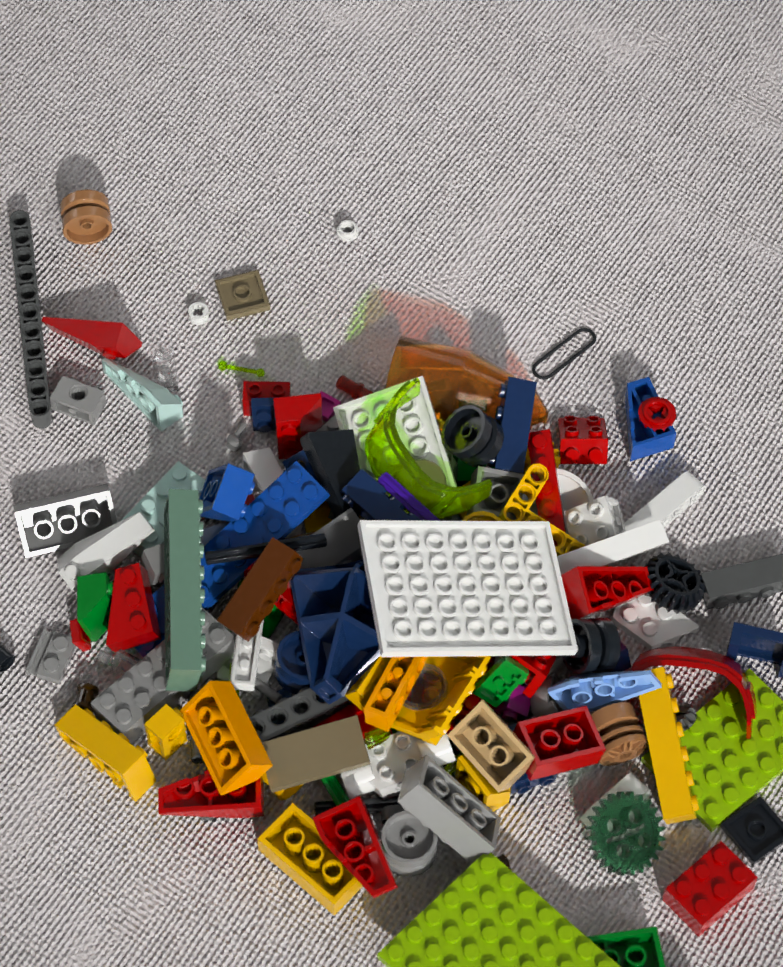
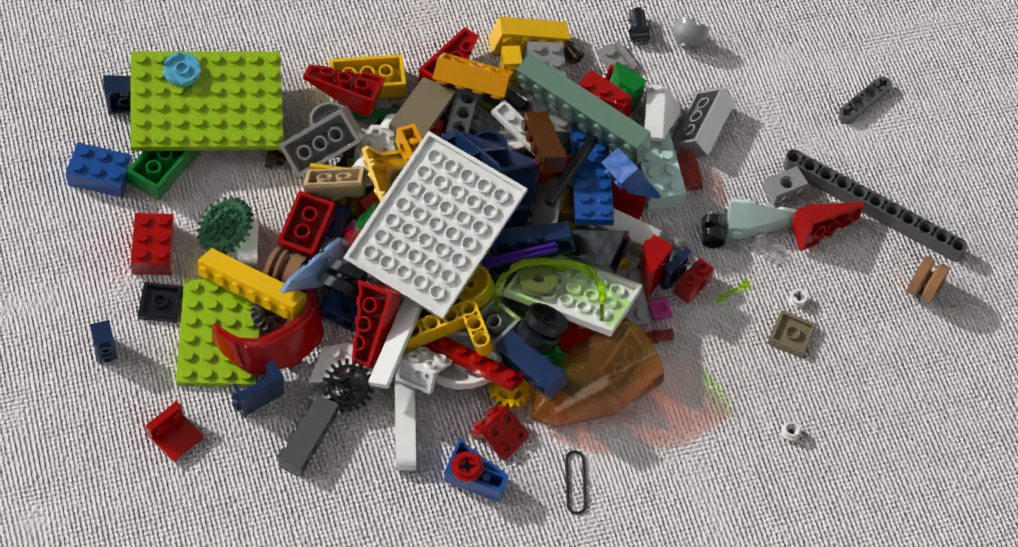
camera: 125 degrees right, 0 degrees up
(136, 488) = (689, 170): none -> clear red hinge
(193, 420) = (713, 231): none -> black wheel

